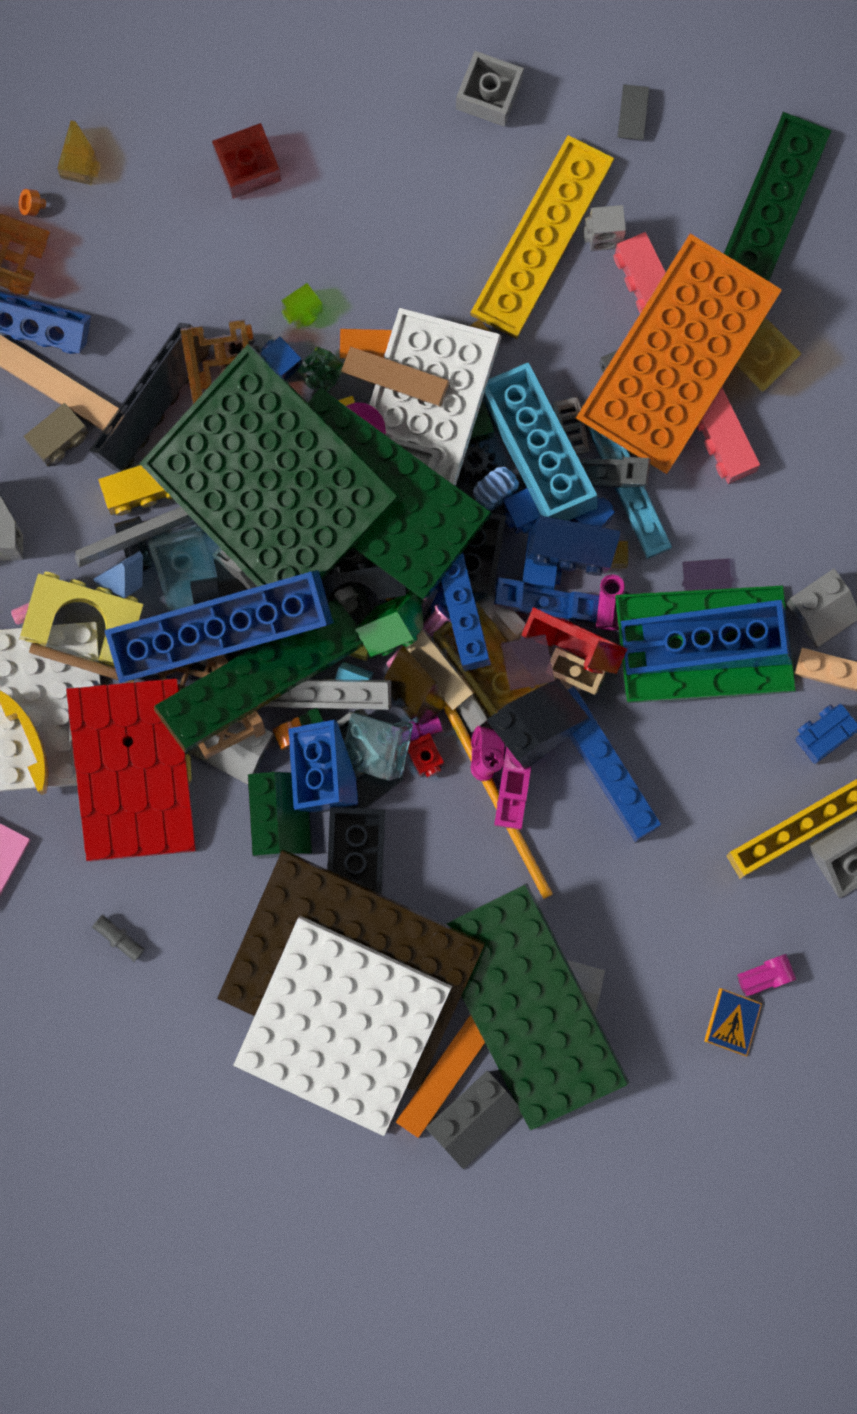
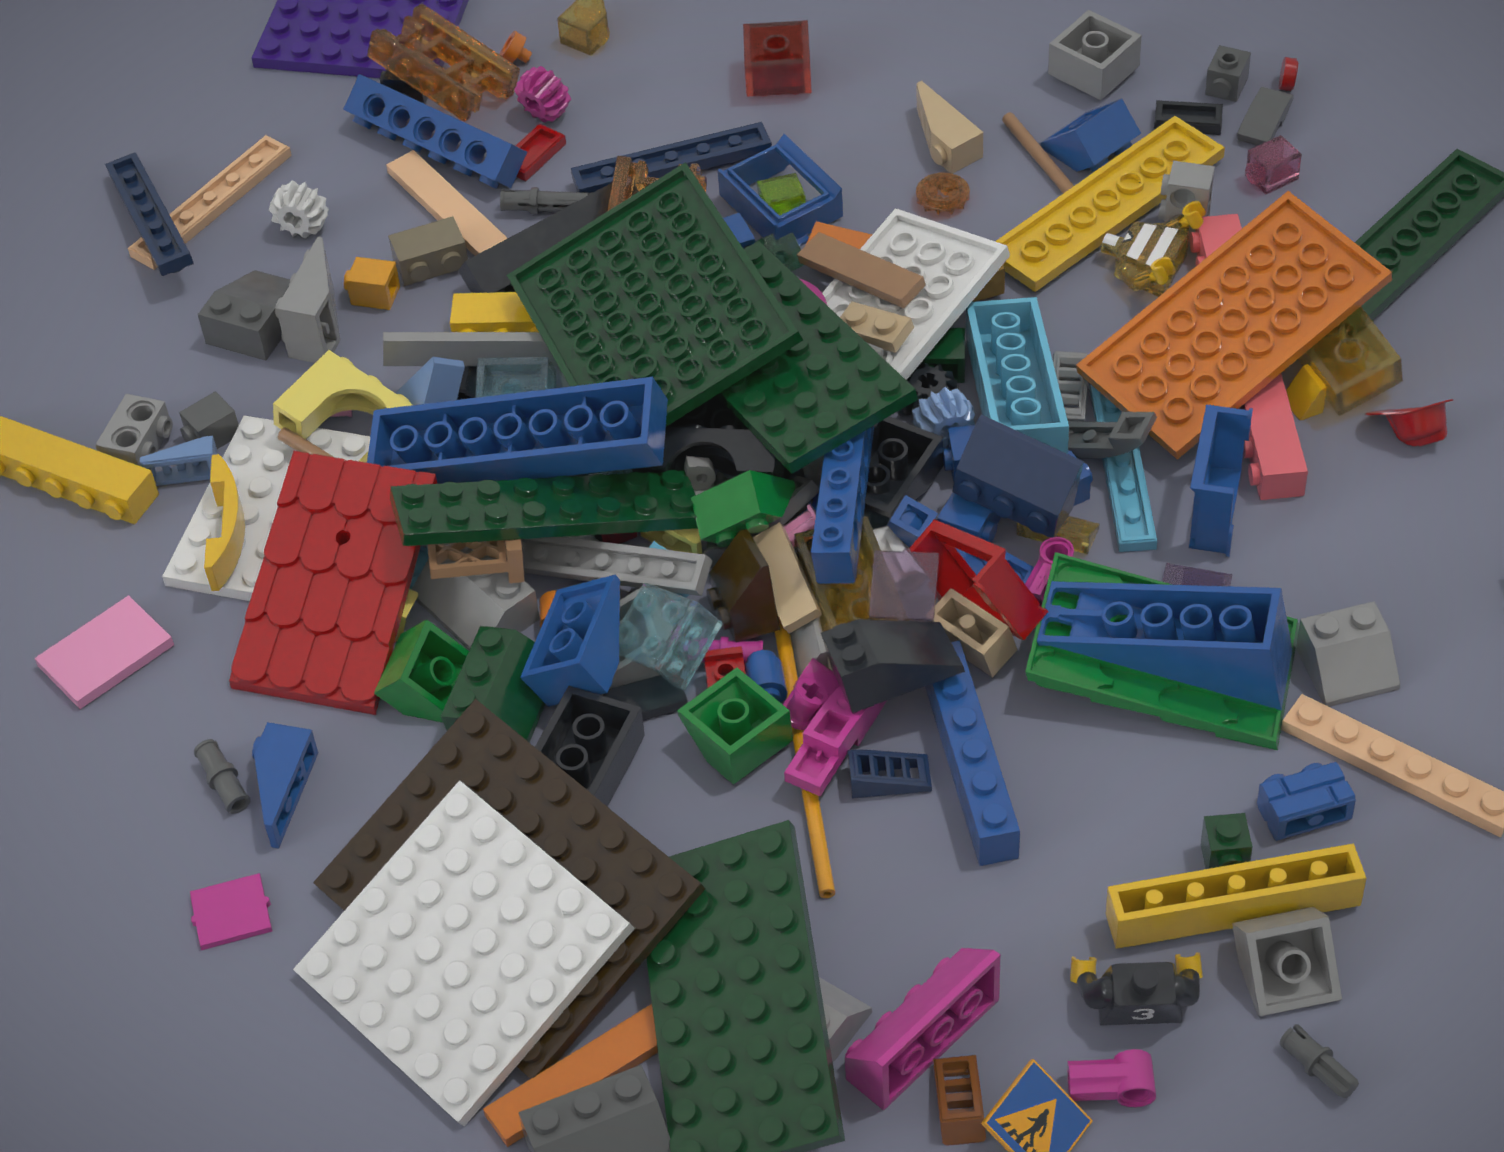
camera: 25 degrees right, 30 degrees down
(26, 478) = (372, 283): none -> light orange brick
(78, 252) = (542, 94): none -> dark pink gear
(92, 300) = (541, 146): none -> red tile
(125, 355) = (537, 200): none -> dark grey pin
(157, 921) = (283, 765): none -> blue slope
(170, 1033) = (230, 911): none -> dark pink piece
(202, 286) = (705, 150): none -> dark blue plate
(221, 815) = (421, 672): none -> green slope
(322, 332) = (736, 192): none -> blue piece
(405, 203) = (949, 134): none -> tan slope
(419, 249) = (950, 185): none -> clear orange gear
(424, 430) = (878, 326): none -> tan plate
(447, 794) = (737, 725): none -> green slope
(450, 747) = (768, 673): none -> blue brick
(476, 198) = (1037, 152): none -> medium nougat bar
(511, 173) = (1093, 137): none -> blue slope
(535, 800) = (876, 785): none -> dark blue slope
(577, 125) = (1201, 116): none -> black tile
(592, 282) = (1153, 252): none -> torso
(593, 76) = (1227, 73): none -> dark grey brick
(638, 63) = (1288, 74): none -> red tile
(644, 977) = (924, 1025): none -> dark pink slope
(653, 165) = (1273, 164): none -> clear pink brick
(690, 1037) = (959, 1125): none -> dark orange slope
(700, 494) = (1218, 477): none -> blue piece
(737, 385) = (1306, 393): none -> yellow slope
(769, 914) = (1139, 990): none -> black torso
(788, 786) = (1225, 840): none -> dark green brick
(815, 386) = (1418, 424): none -> red piece

